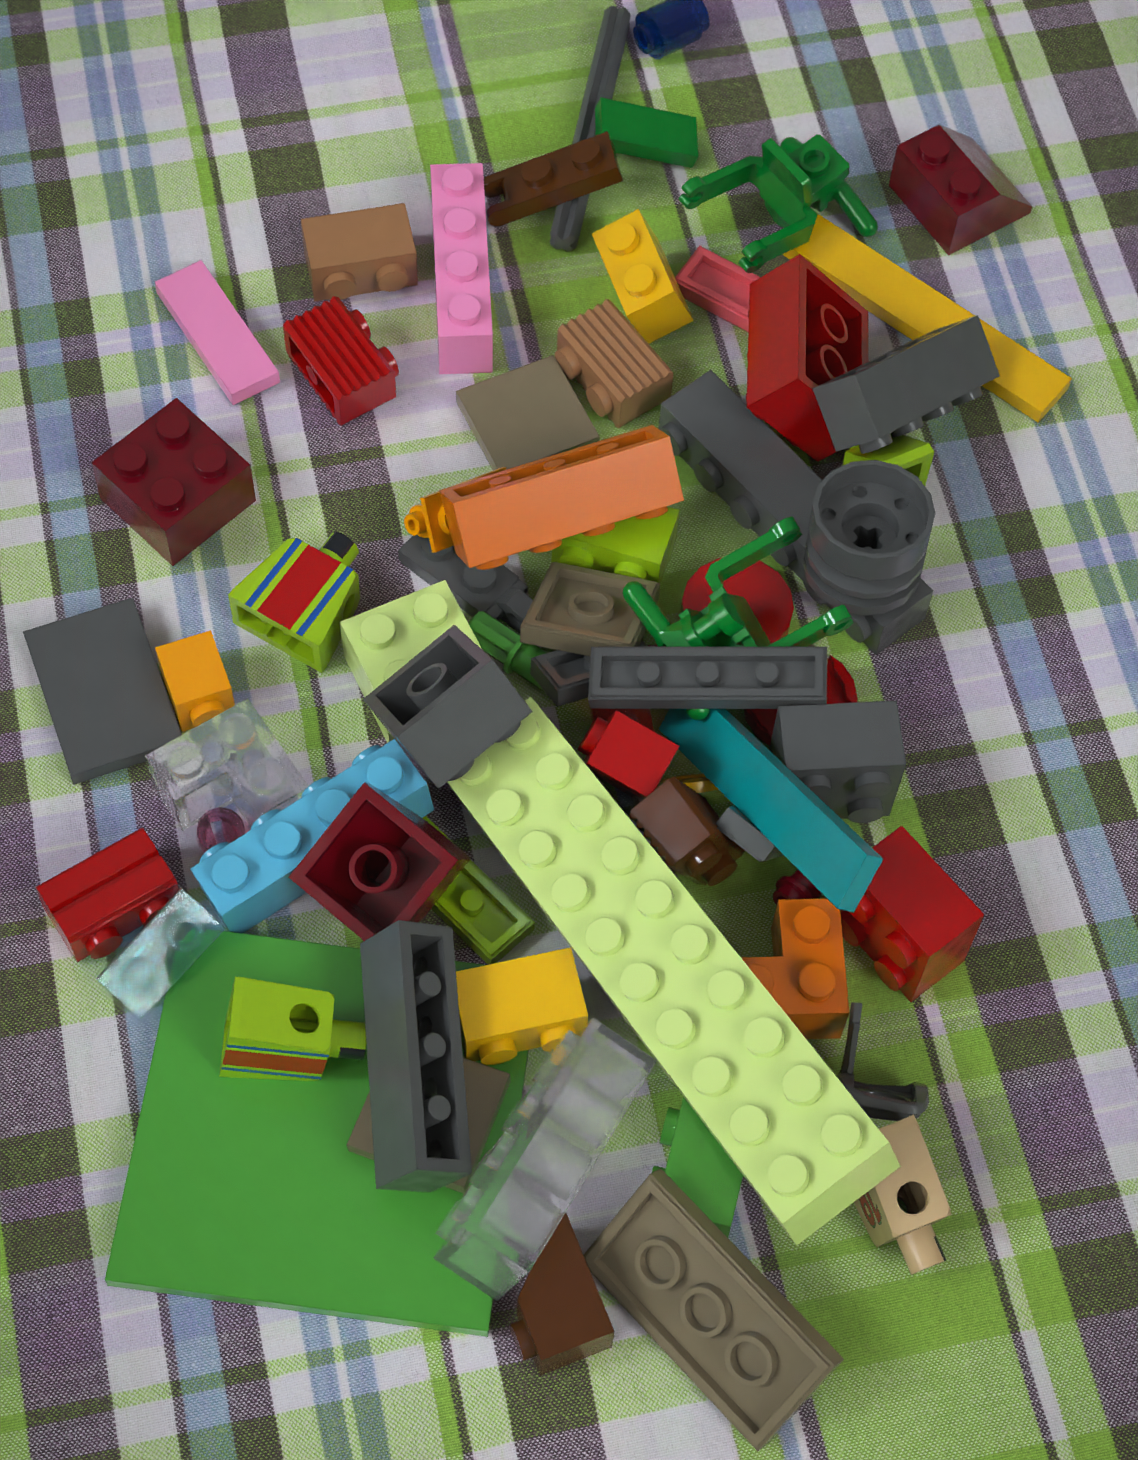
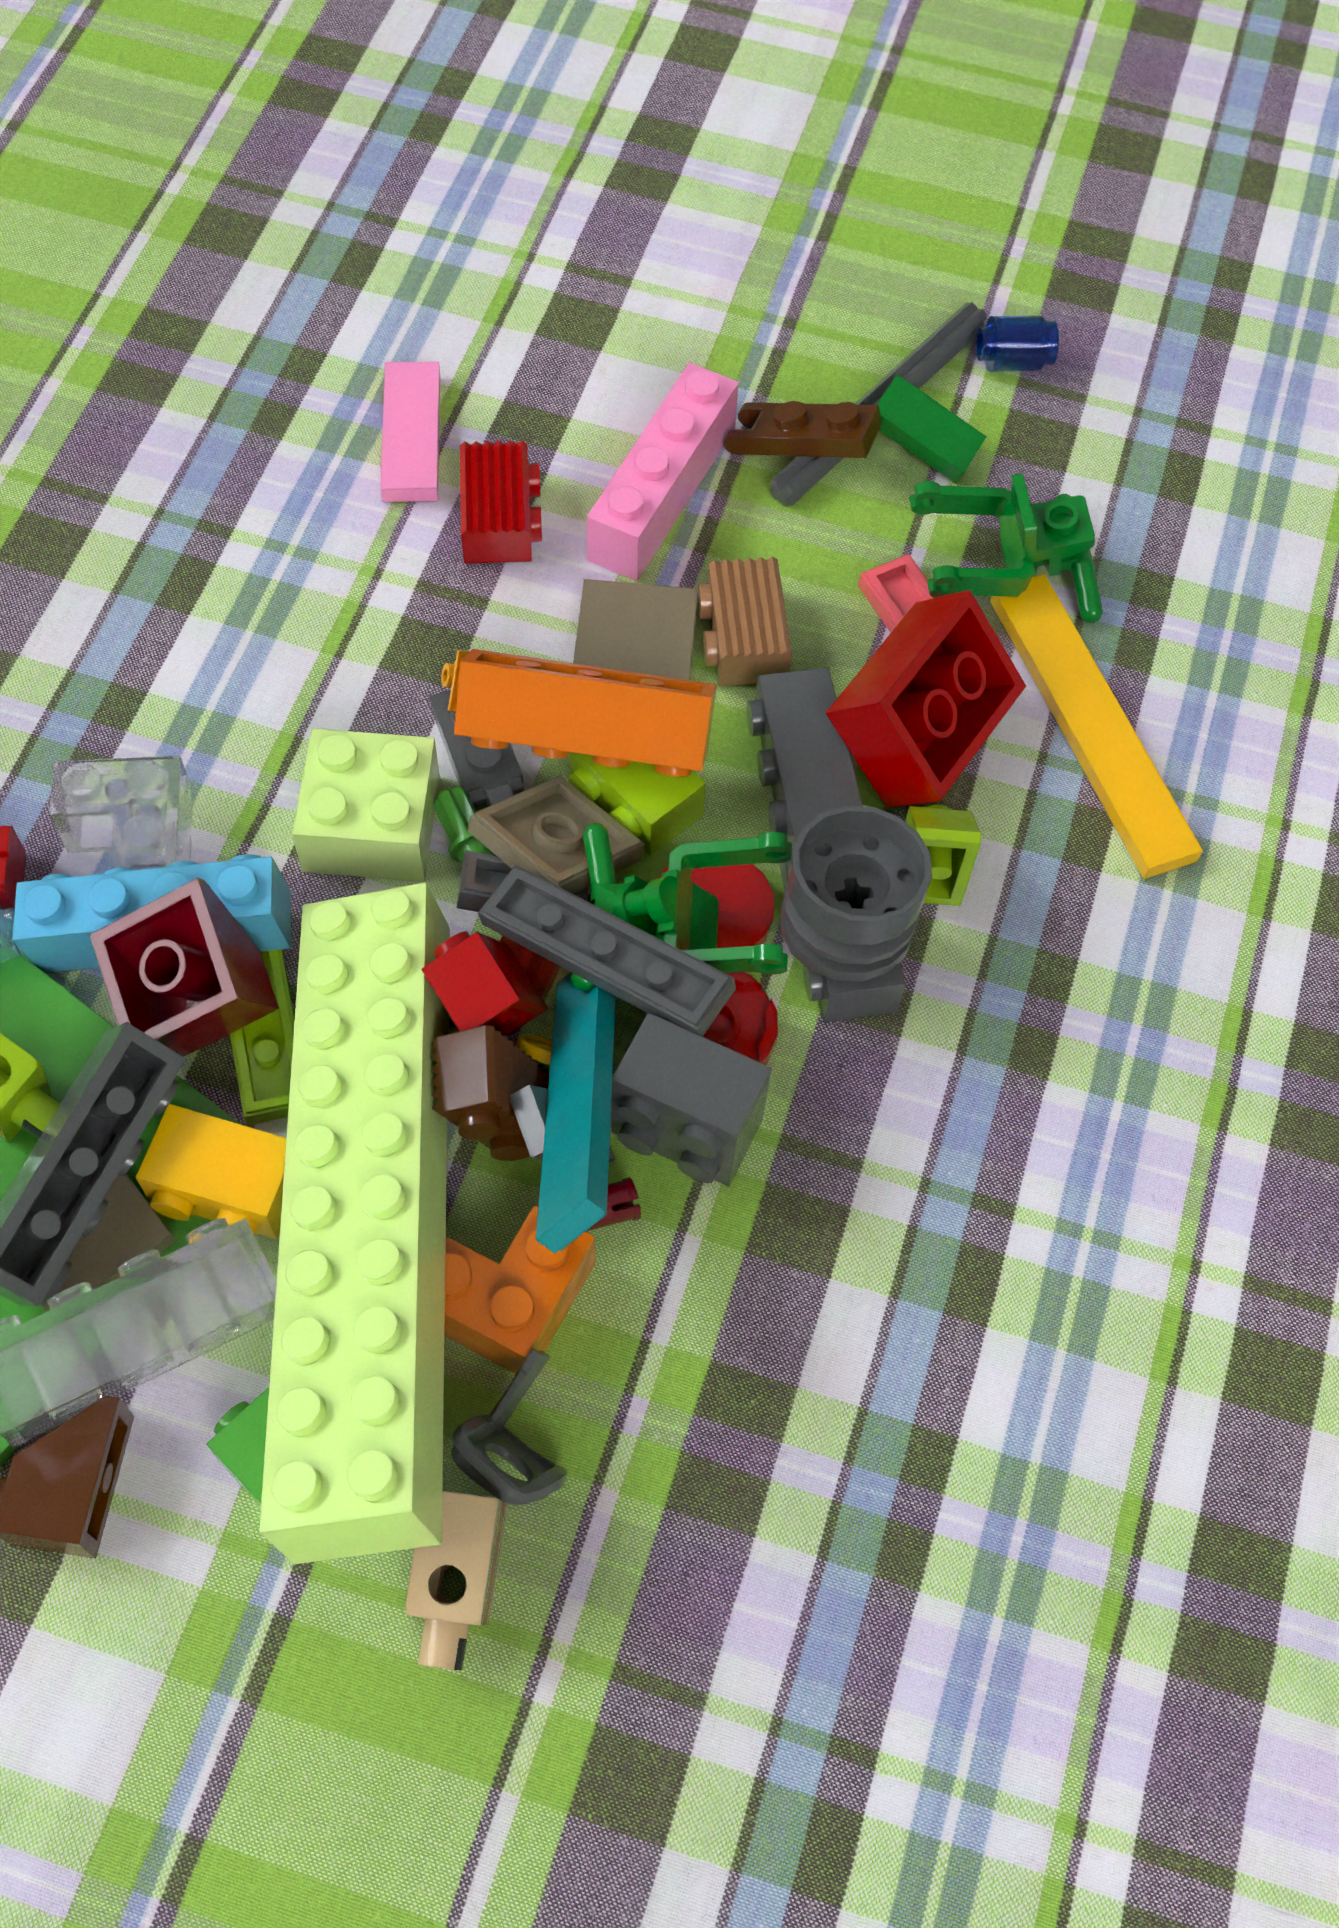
camera: 30 degrees right, 0 degrees up
(102, 689) = (85, 689): dark grey tile -> none
(174, 481) = (271, 538): dark red brick -> none
(195, 679) = (164, 718): light orange brick -> none
(231, 826) = (75, 859): clear pink hinge -> none
(300, 598) = (309, 687): torso -> none
(359, 252) = (581, 415): medium nougat brick -> none
(448, 706) = (330, 851): dark grey brick -> none
(642, 277) = (826, 554): yellow brick -> none
(710, 1309) = (190, 1581): dark tan tile -> none
(907, 384) = (1006, 767): dark grey brick -> none
(911, 918) = (657, 1290): red brick -> none
(954, 188) = (1205, 612): dark red slope -> none

